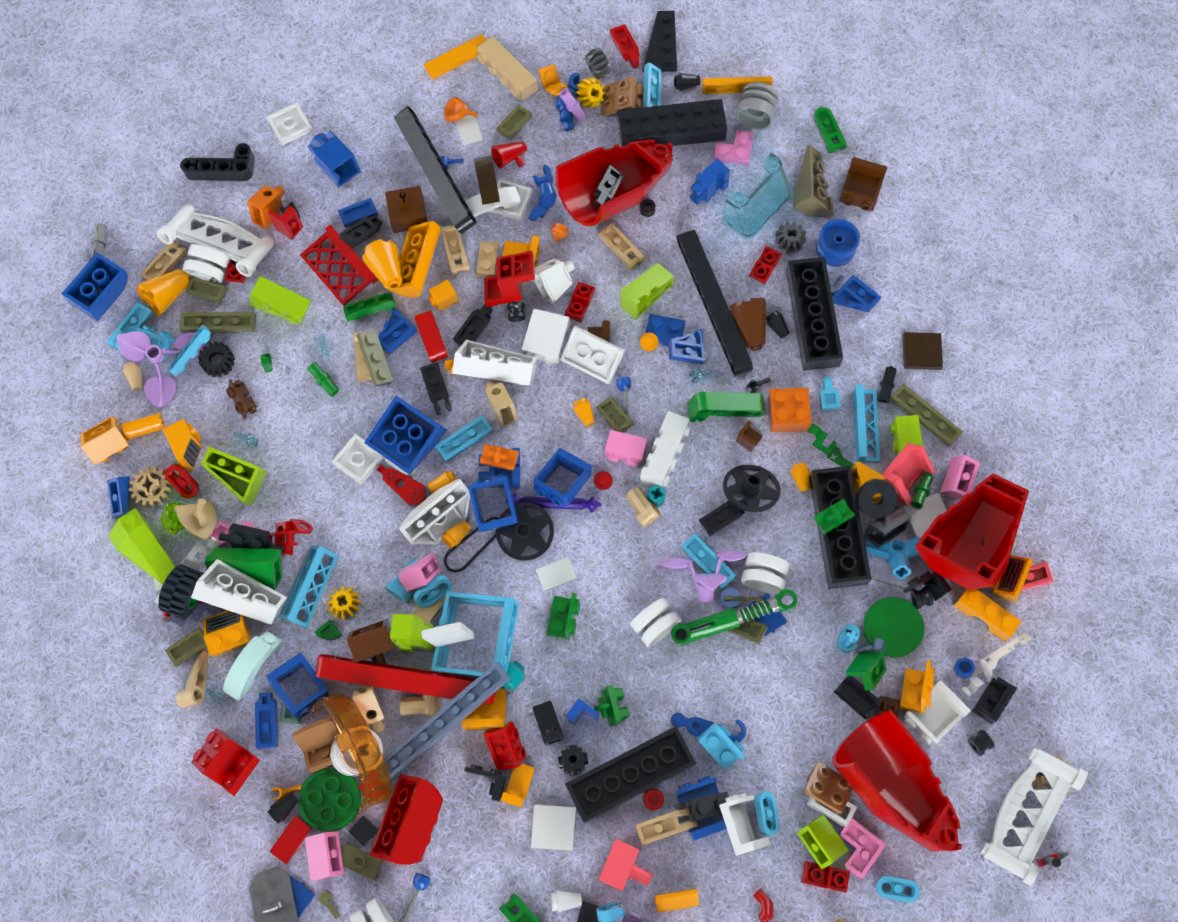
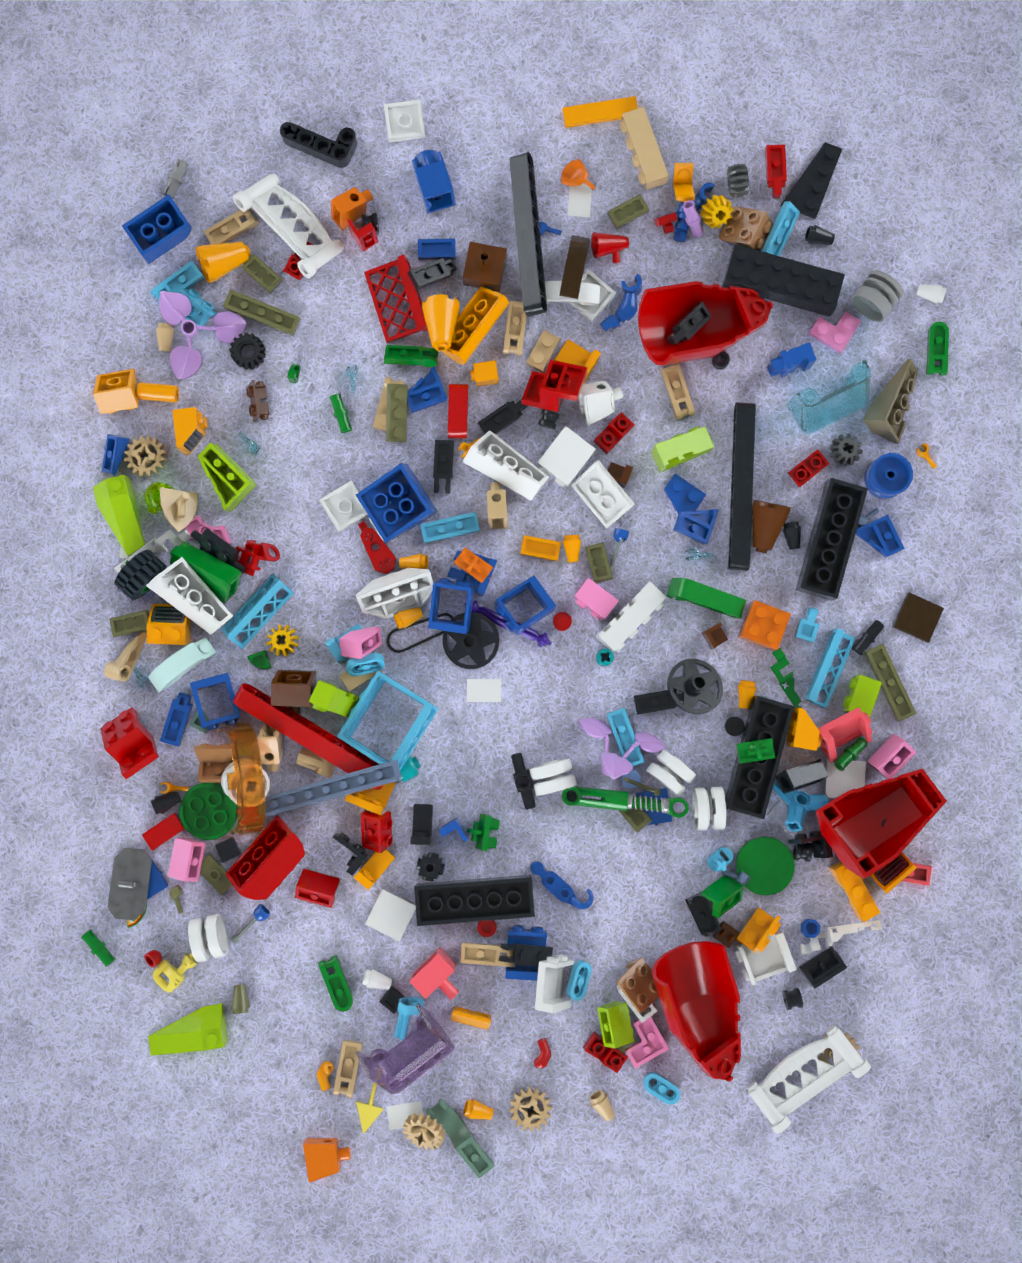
camera: 20 degrees right, 15 degrees up
(181, 481) = (175, 463): red plate -> none
(190, 350) = (224, 333): medium azure plate -> none
(205, 263) = (269, 249): white wheel -> none
(279, 301) = (327, 317): lime wedge -> none
(447, 634) = (362, 715): white tile -> none
(468, 832) = (317, 888): none -> red panel
(551, 117) = (666, 222): none -> red tile
(555, 424) = (540, 548): none -> light orange tile
(559, 231) = (624, 350): orange plate -> none
(562, 616) = (472, 734): green bracket -> none
(634, 649) = (526, 791): none -> black axle
(645, 510) = (588, 666): tan piece -> none
(649, 341) = (662, 502): light orange plate -> none
(720, 746) = (564, 907): medium azure bracket -> none
(730, 85) = (867, 261): light orange tile -> none
(754, 385) = (744, 586): black hand -> none
(802, 89) = (933, 293): none -> white cone
(804, 511) = (734, 726): none -> black tile
(816, 591) = (709, 808): none -> white wheel
(859, 215) = (925, 454): none -> light orange hand
(863, 184) = (942, 422): reddish brown panel -> none
(887, 502) = (805, 760): black tile -> none
(1052, 860) = (802, 1119): piece -> none

